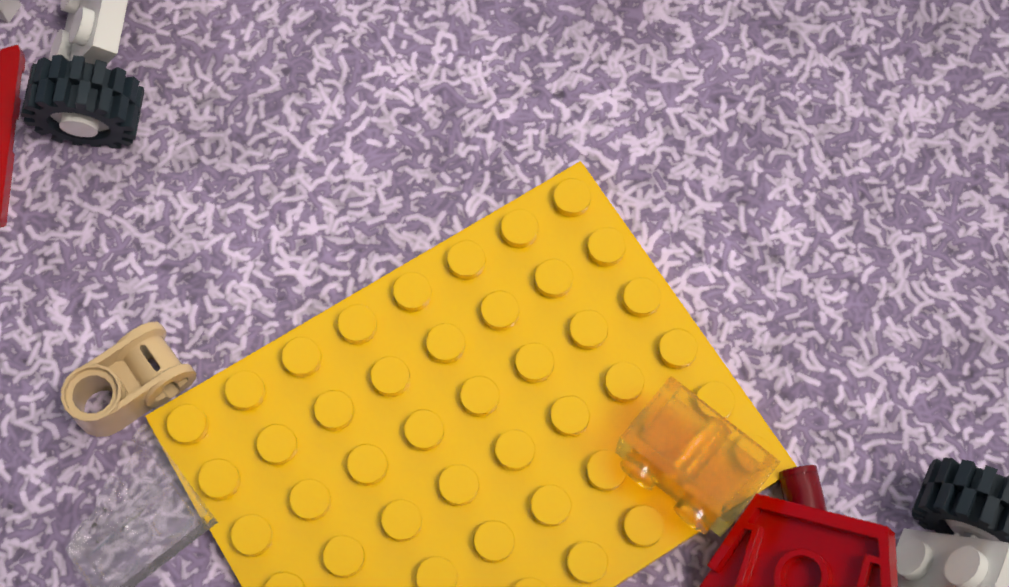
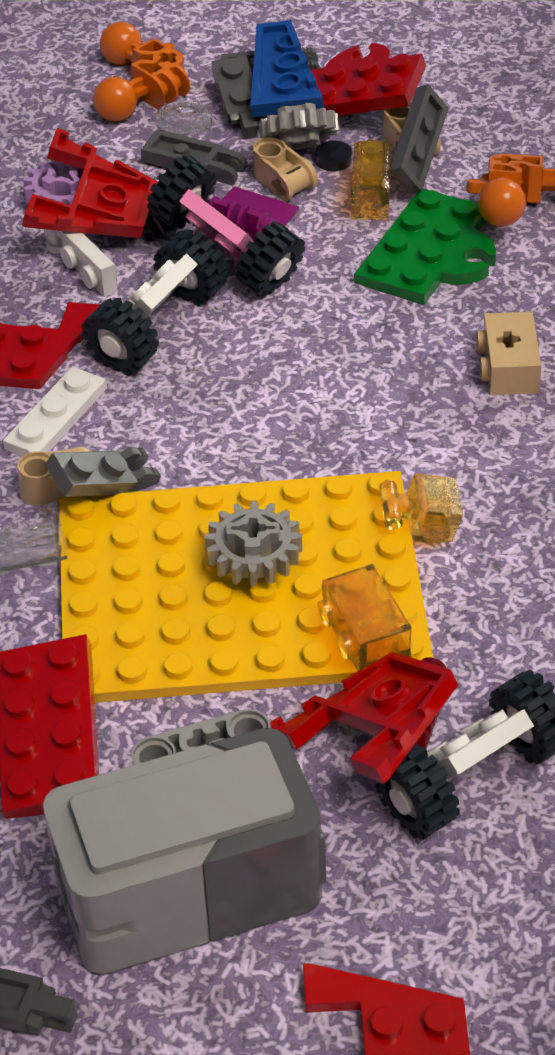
camera: 30 degrees right, 25 degrees down
(54, 266) = (55, 412): none -> white plate
(187, 366) = (101, 472): none -> dark grey hinge
(453, 410) = (253, 543): none -> light grey gear
(659, 212) = (429, 505): none -> clear yellow brick

